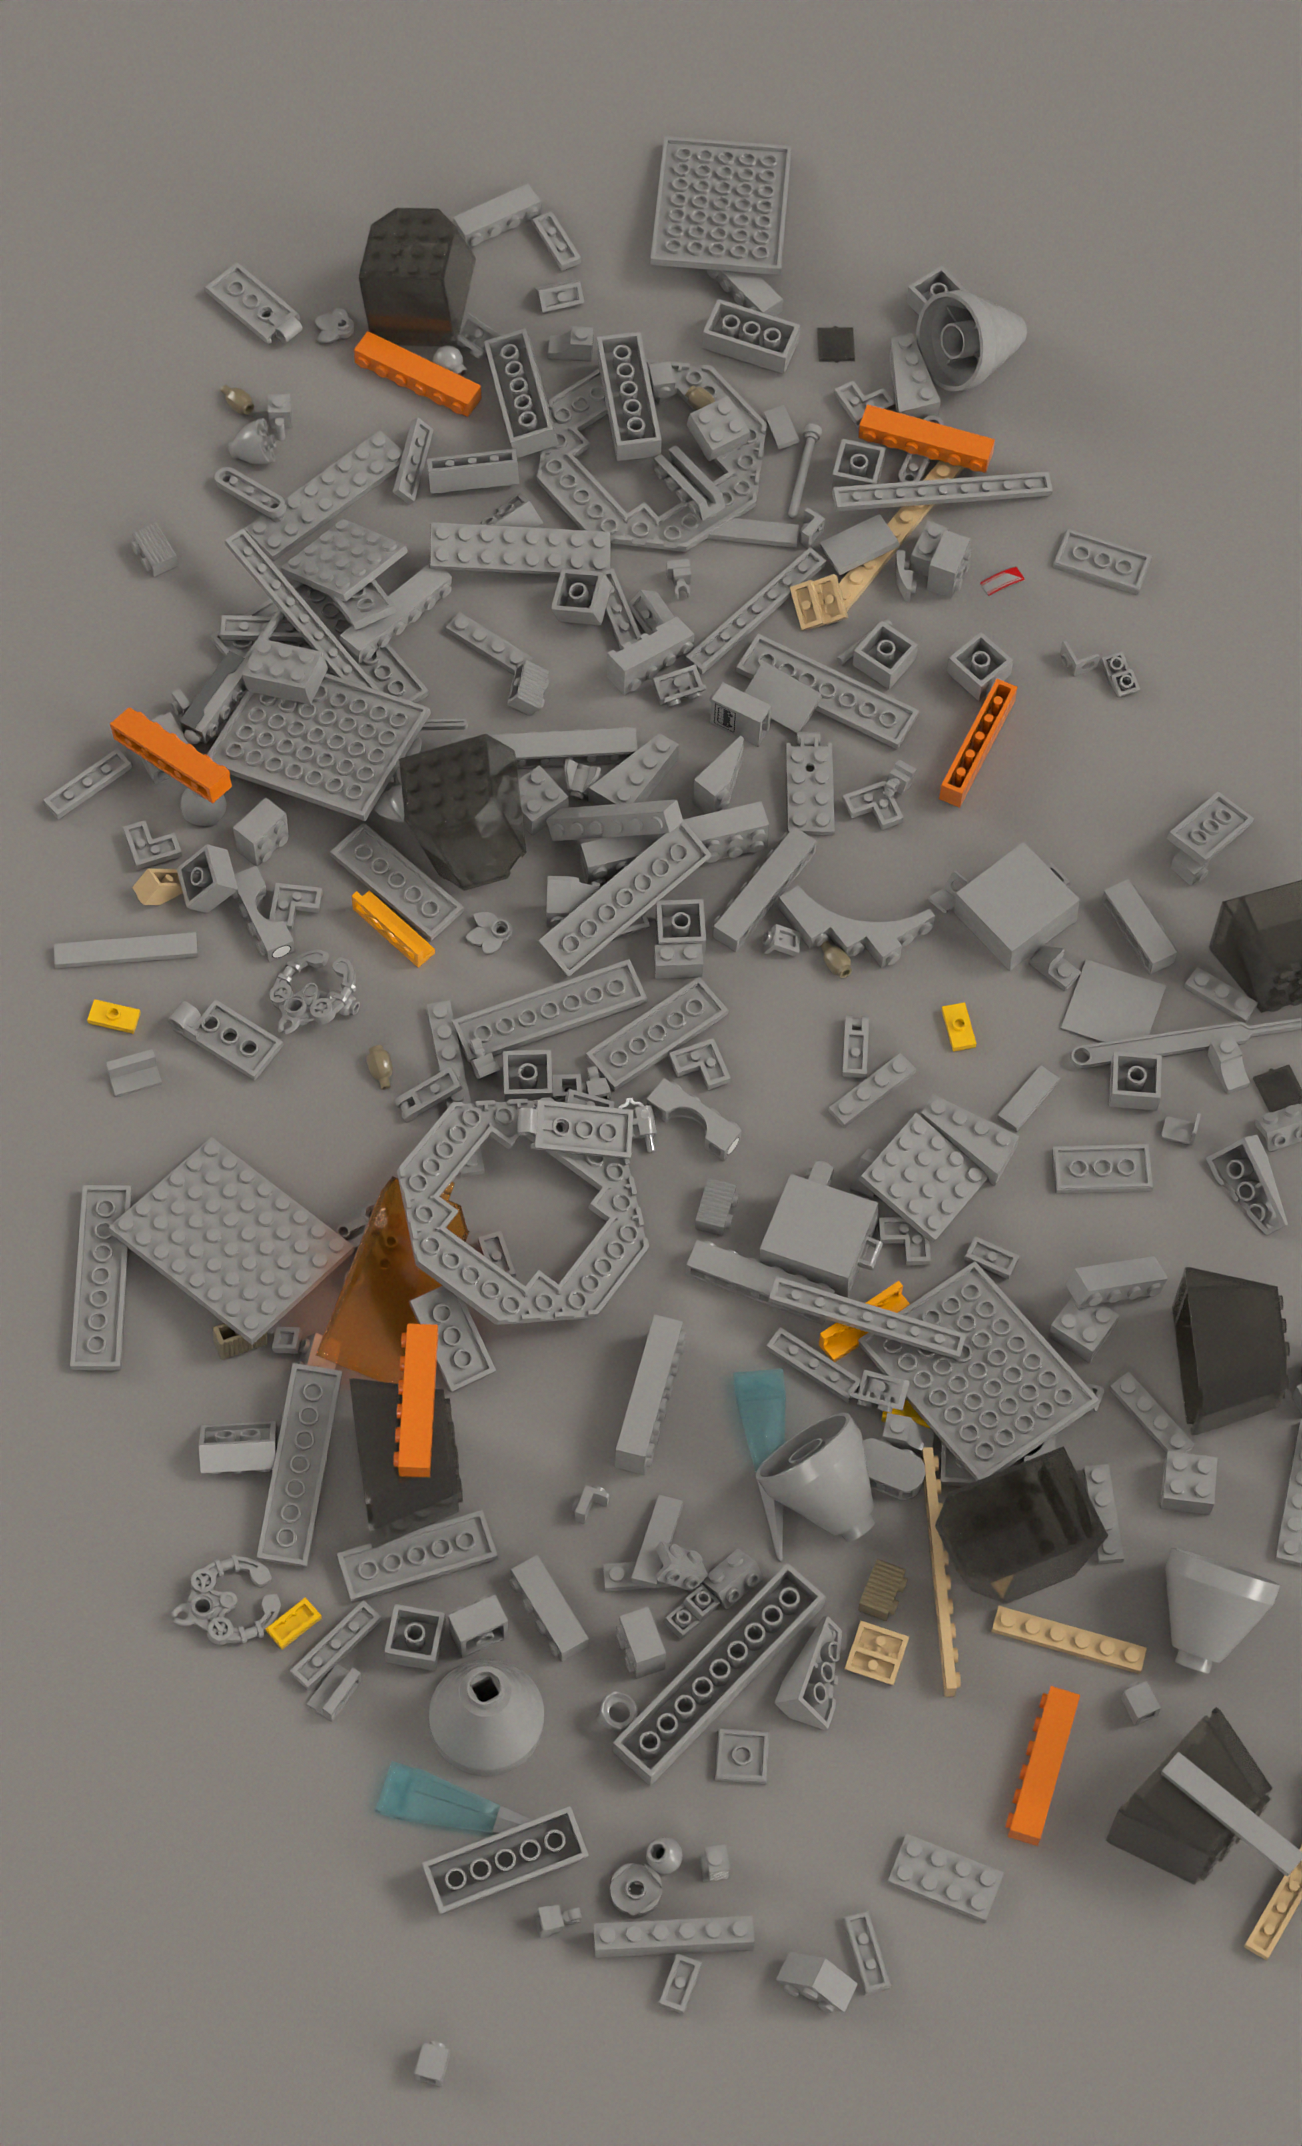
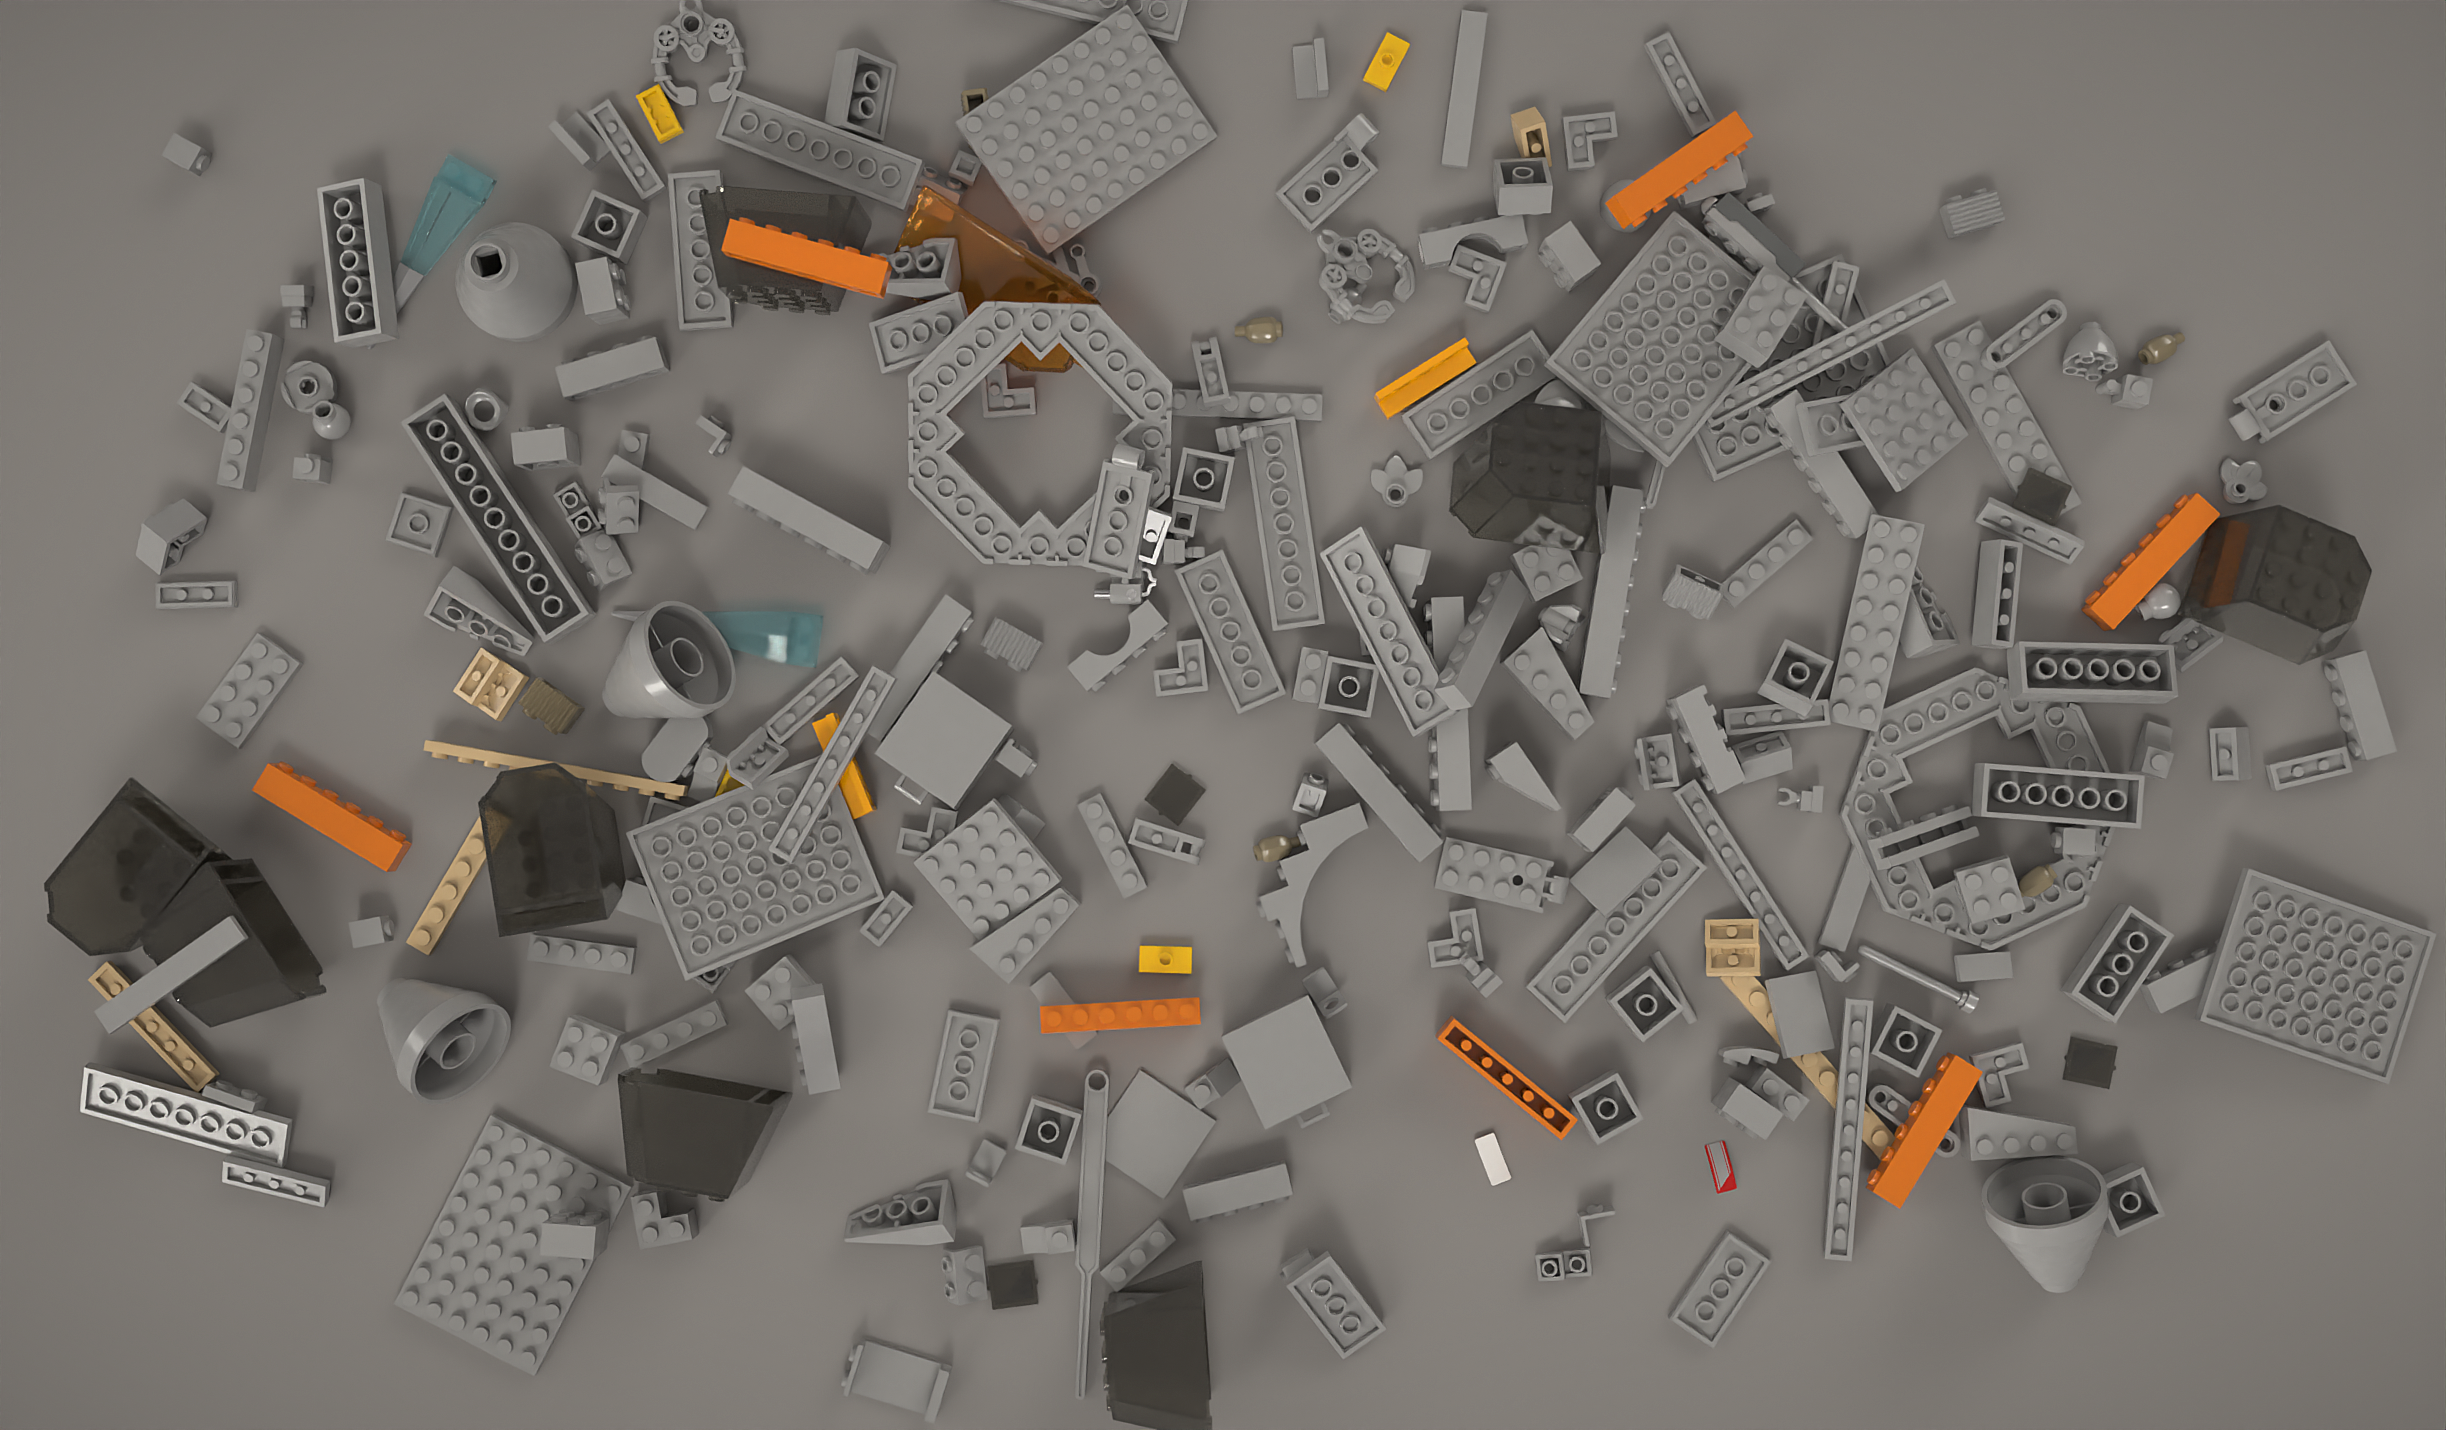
camera: 110 degrees right, 25 degrees up
(382, 1342) = (925, 270): none -> light grey wedge
(383, 456) = (2041, 496): none -> clear smoke piece
(812, 1050) = (1175, 794): none -> clear smoke piece
(1019, 1045) = (1120, 1015): none -> orange brick
(1050, 745) = (1492, 1159): none -> white sticker
(1147, 1900) = (125, 872): none -> clear smoke windscreen

